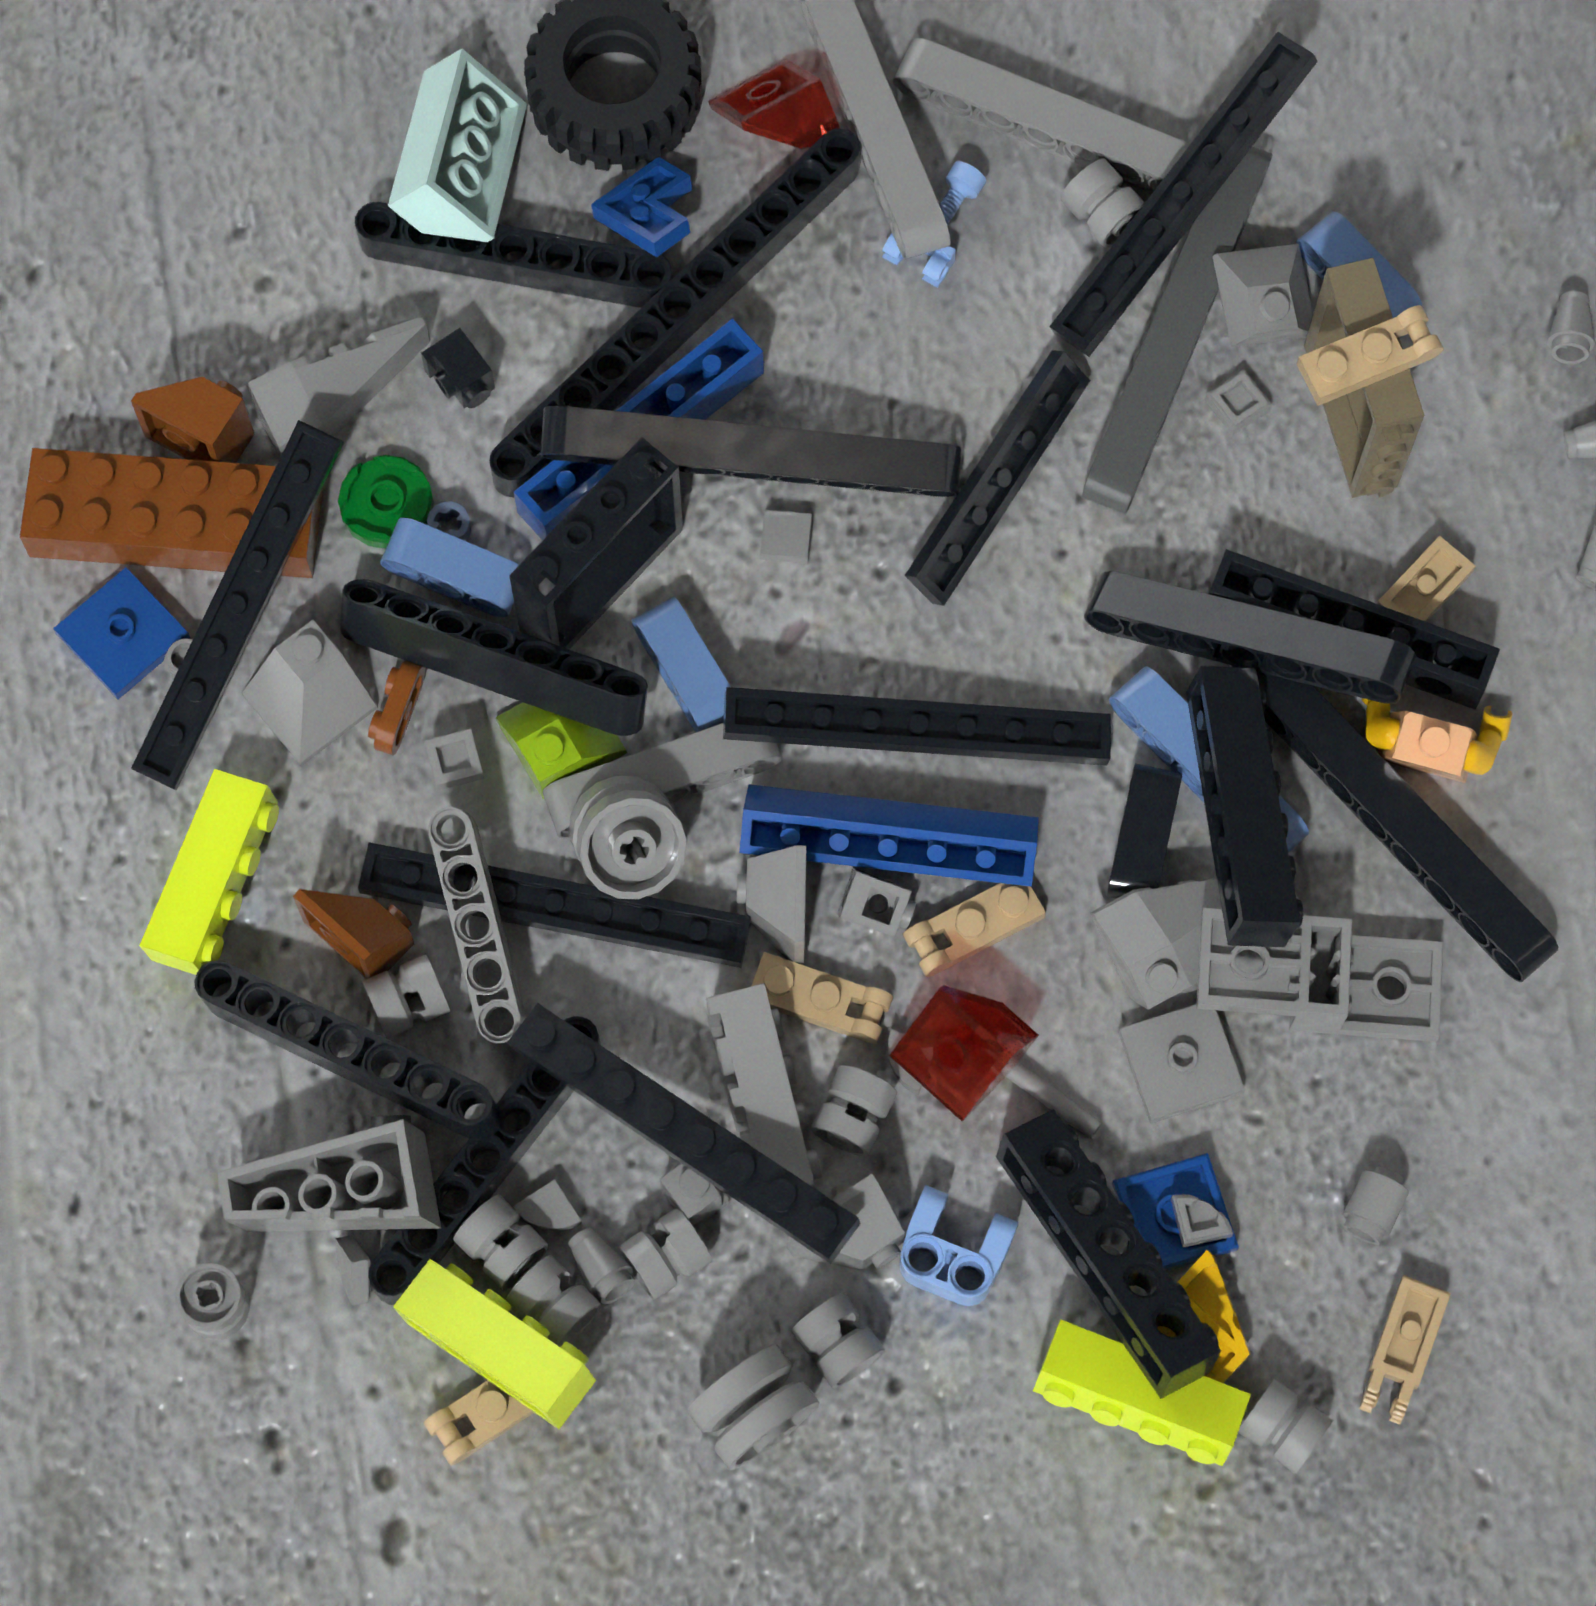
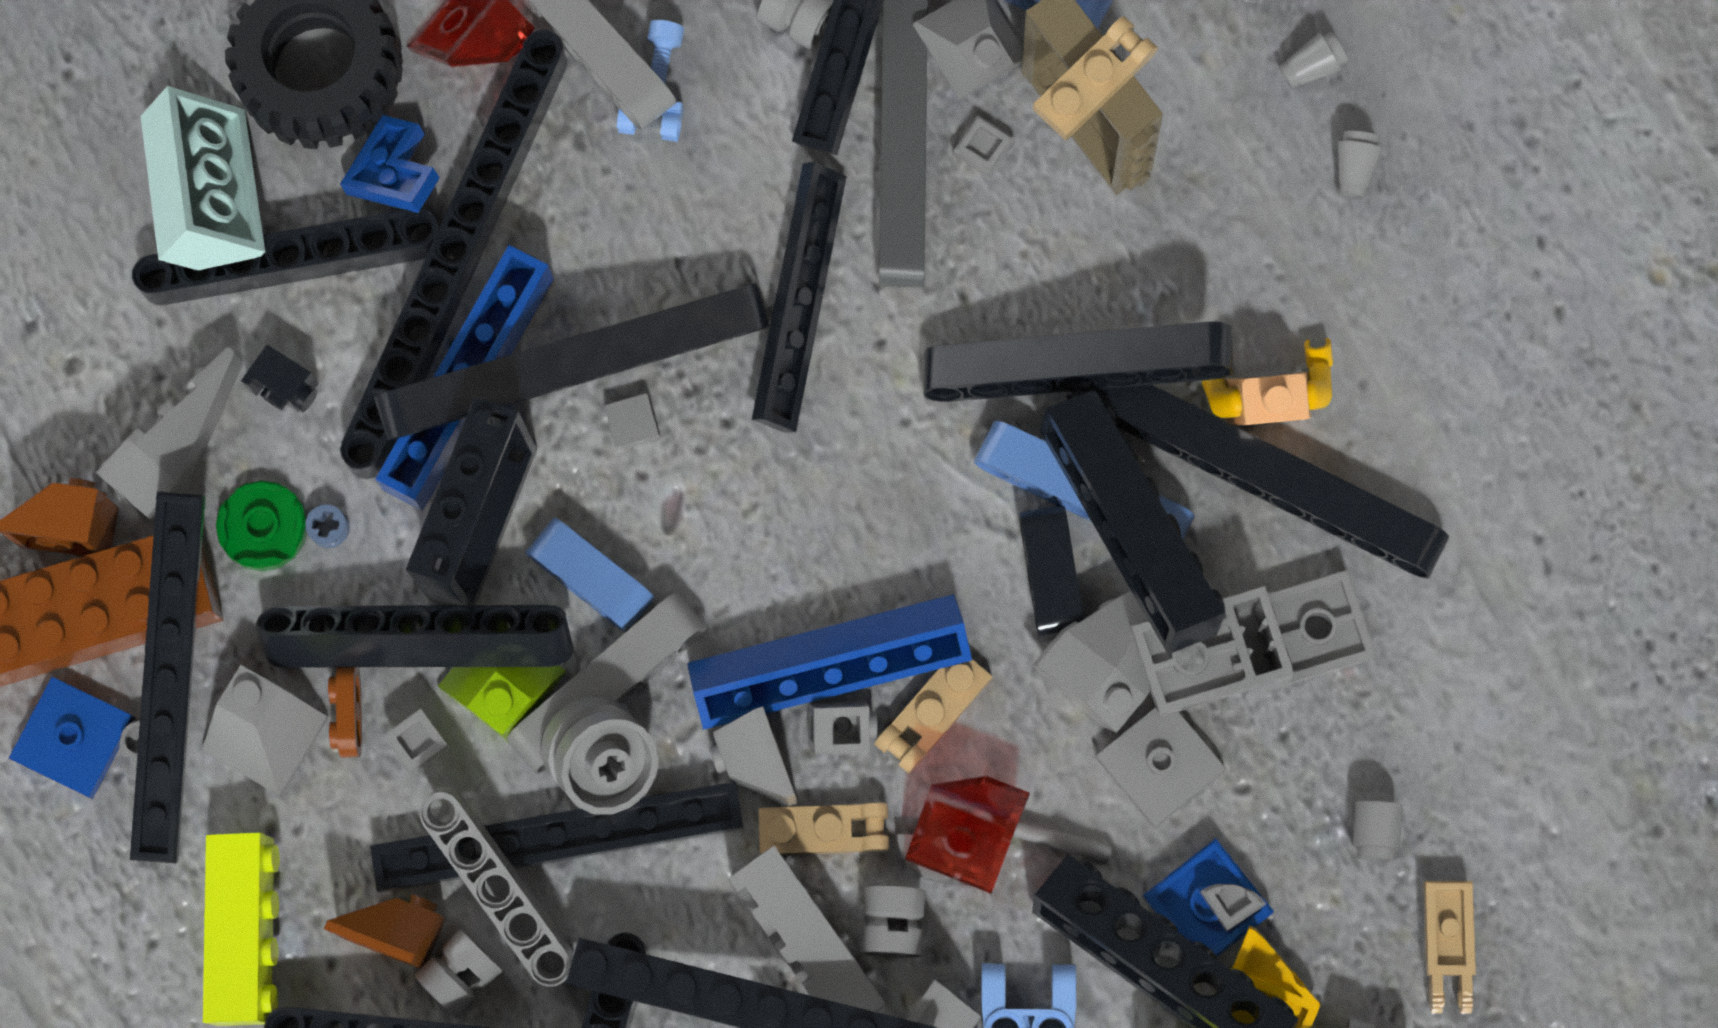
camera: 15 degrees left, 5 degrees up
(450, 567) = (345, 565): medium blue beam -> none
(916, 726) = (814, 554): black plate -> none
(1429, 581) = (1211, 253): tan plate -> none
(1444, 660) = (1255, 316): black brick -> none

